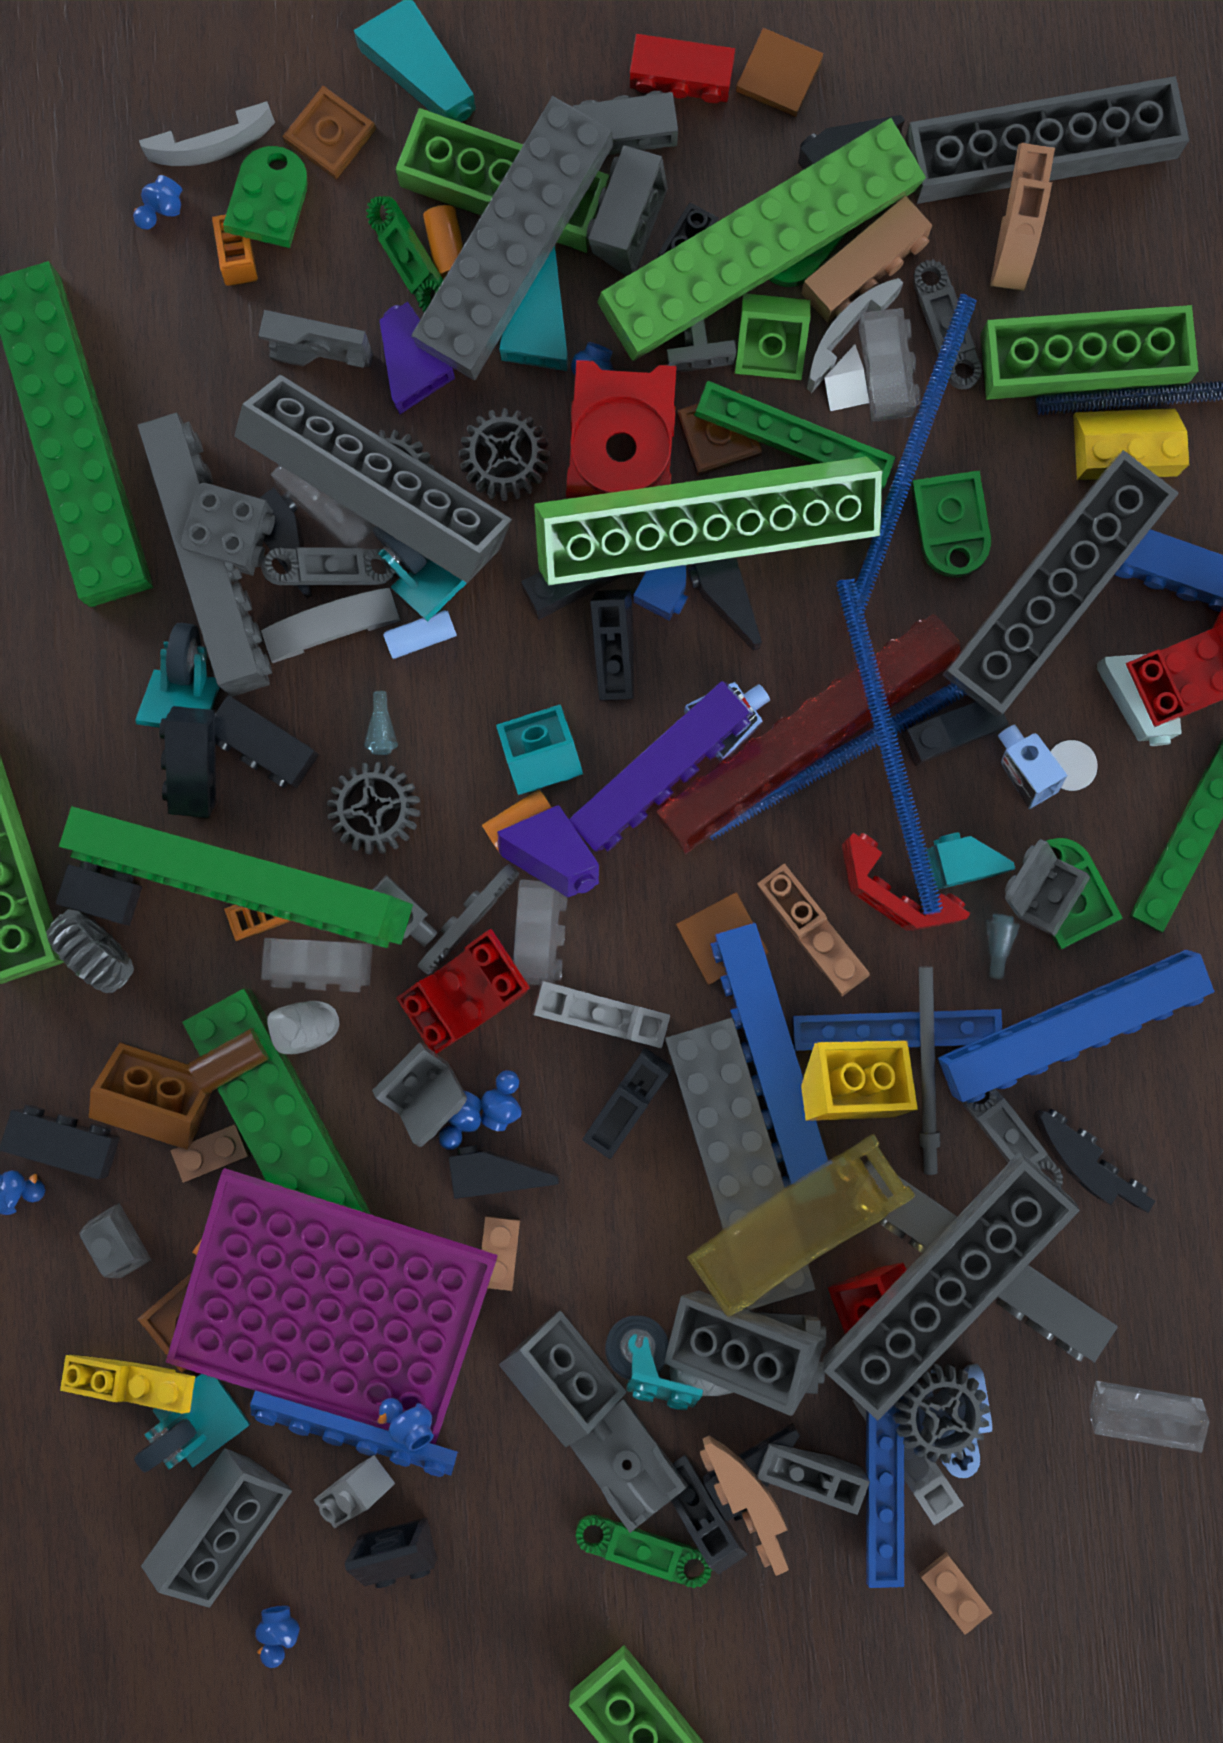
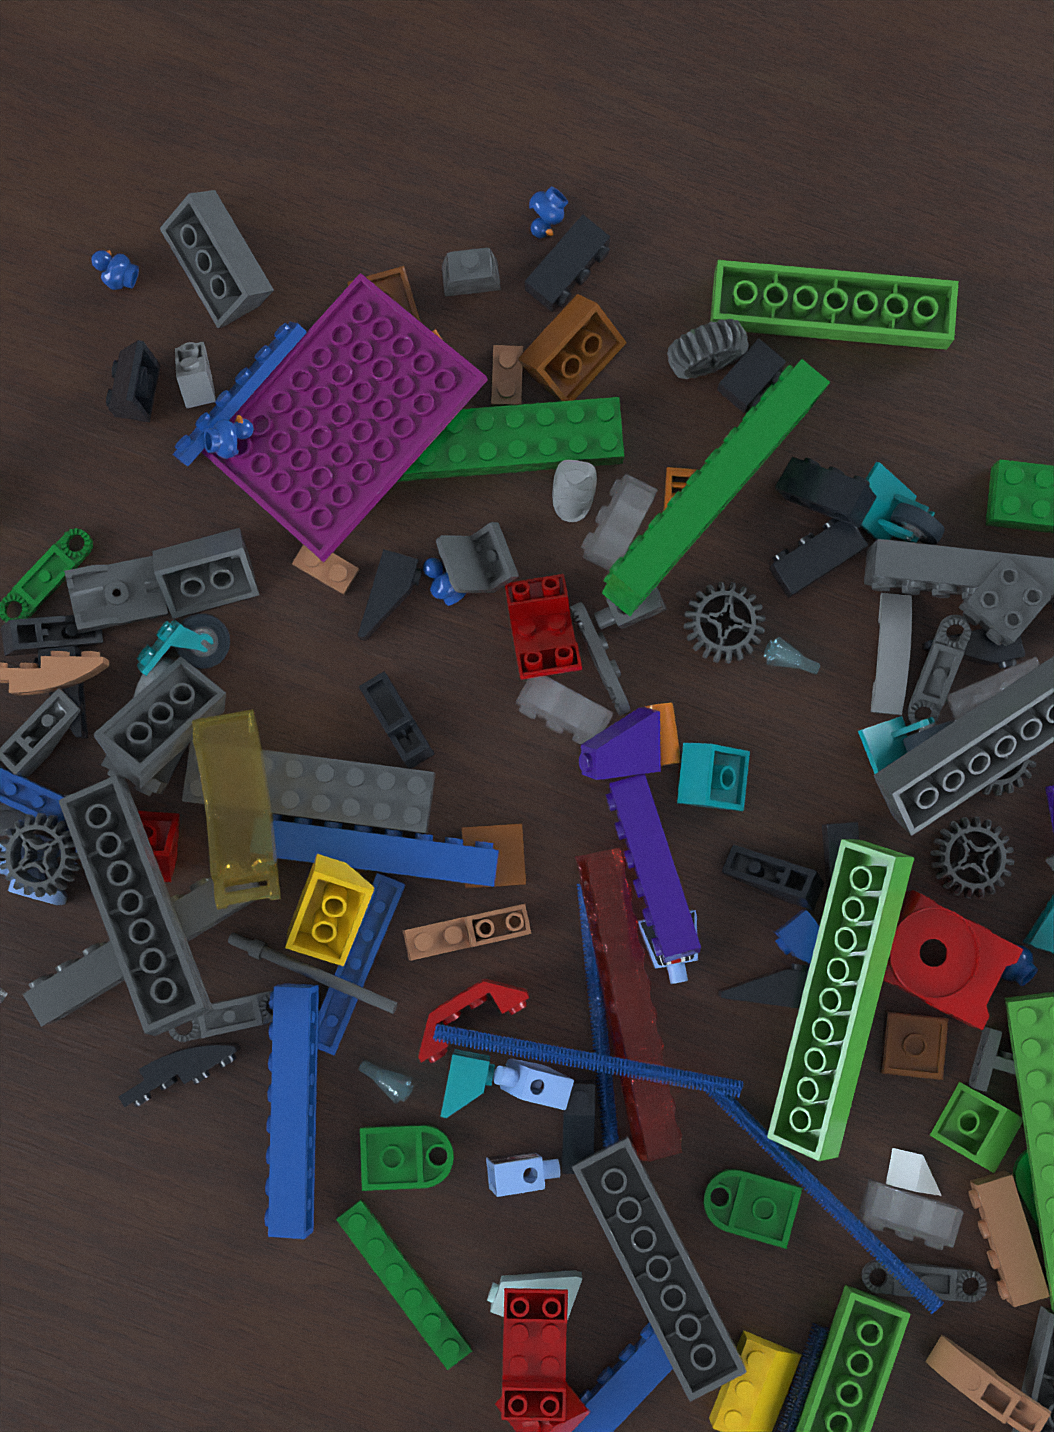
camera: 110 degrees right, 0 degrees up
(128, 1382) = (358, 238): yellow slope -> none
(196, 1434) = (303, 273): teal plate -> none
(228, 1061) = (571, 418): reddish brown brick -> none
(419, 634) = (850, 721): light blue brick -> none
(499, 1105) = (440, 618): blue animal -> none
(600, 1014) = (476, 730): light grey slope -> none
(783, 430) = (889, 1101): green plate -> none
(873, 300) = (970, 1227): light grey slope -> none
(935, 804) = (525, 1079): none -> light blue torso
(1045, 888) = (414, 1135): dark grey bracket -> none
(1077, 762) = (506, 1213): white sticker -> none

